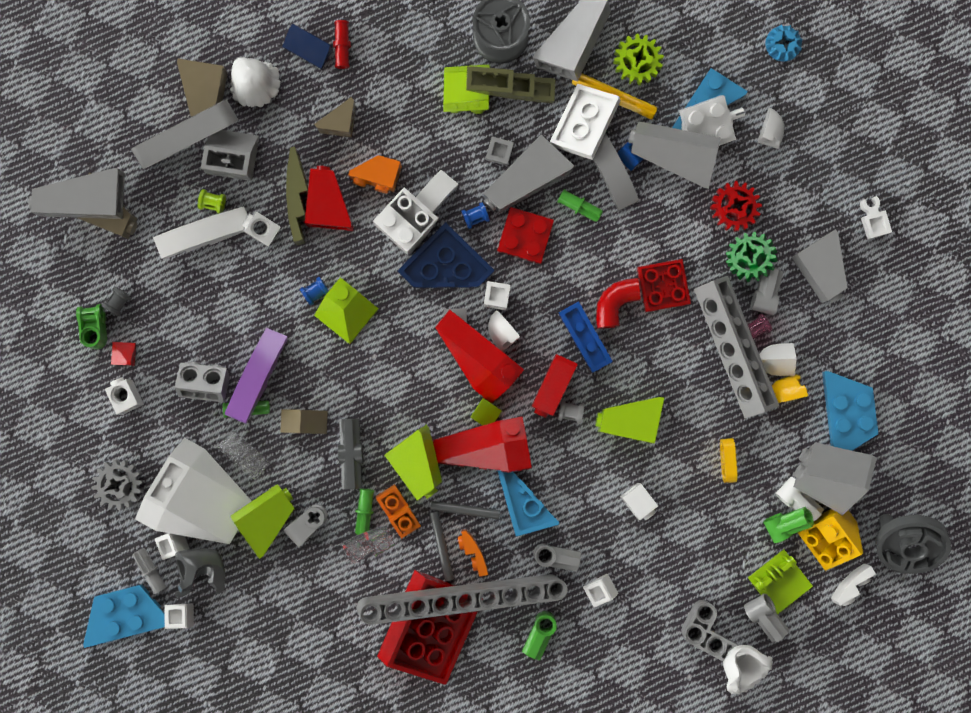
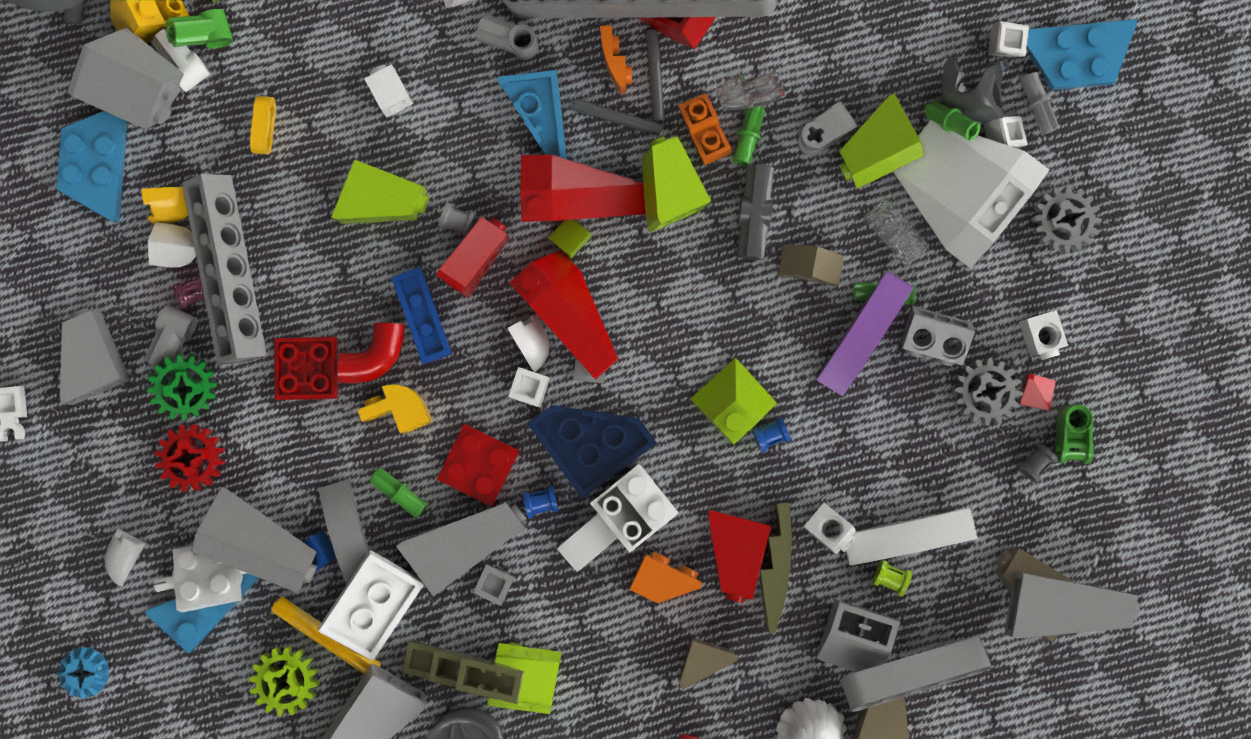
camera: 170 degrees left, 0 degrees up
(155, 338) = (990, 403): none -> light grey gear
(212, 544) = (952, 120): none -> bright green axle
(586, 270) = (405, 405): none -> yellow brick

